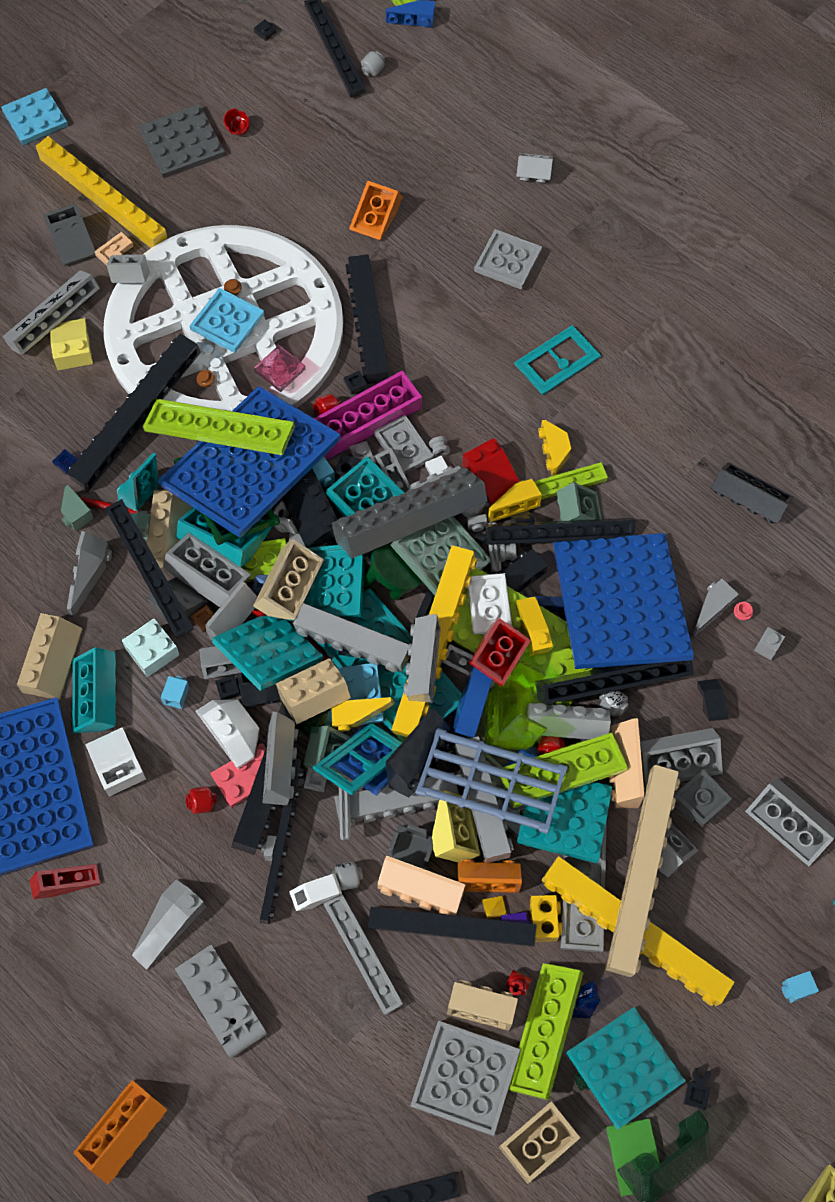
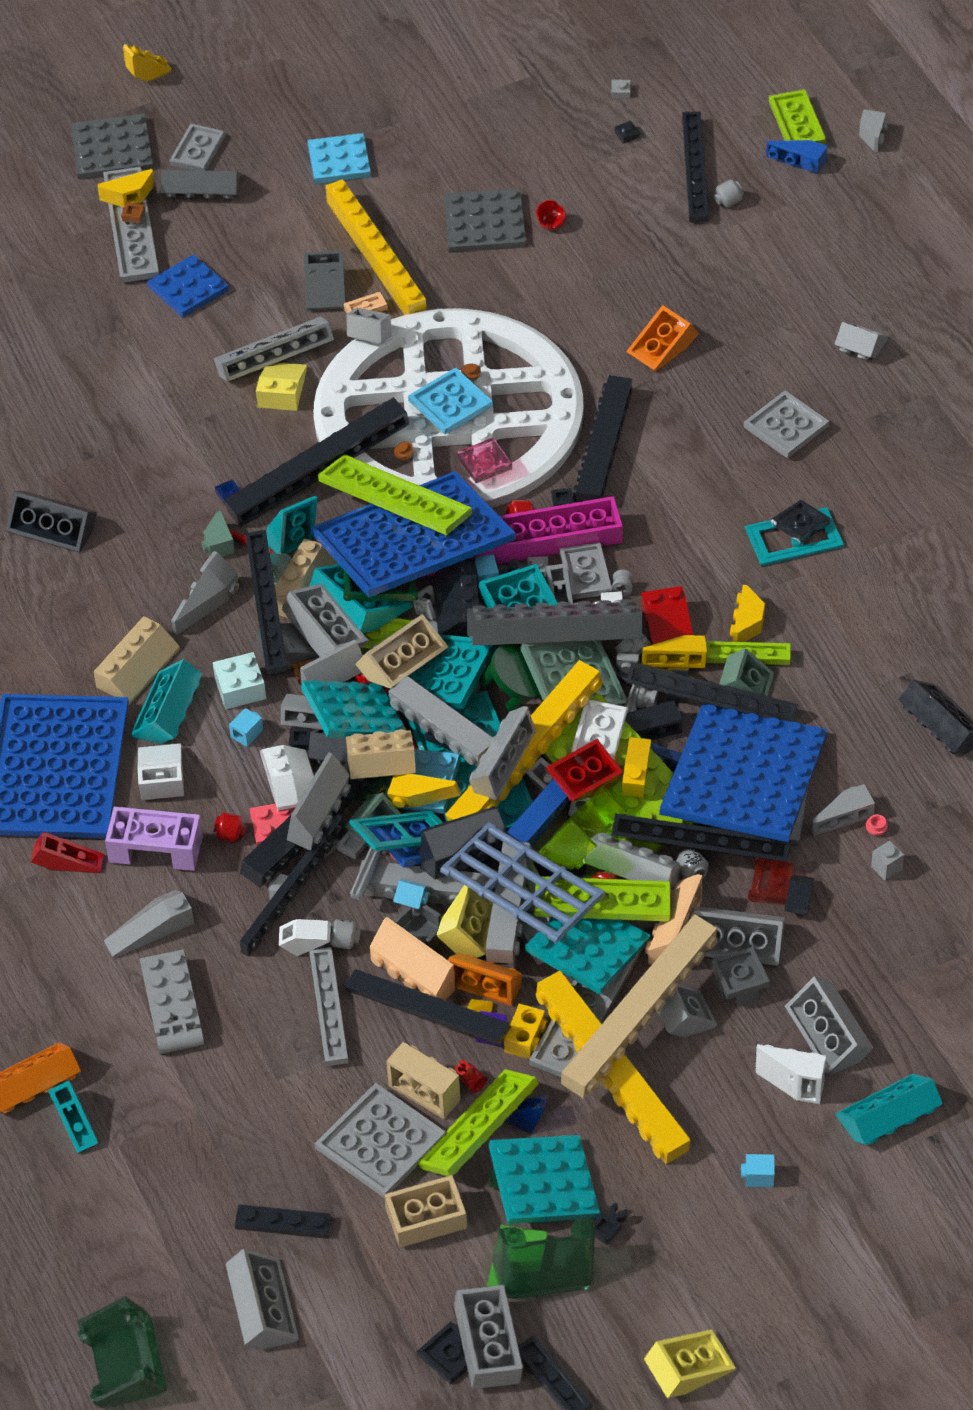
camera: 25 degrees right, 15 degrees down
(160, 834) = (176, 834): none -> lavender plate
(178, 1159) = (73, 1116): none -> teal slope
(393, 818) = (411, 893): none -> medium azure brick
(559, 345) = (800, 521): none -> black tile
(689, 694) = (778, 881): none -> clear red plate
(790, 882) = (792, 1071): none -> white slope

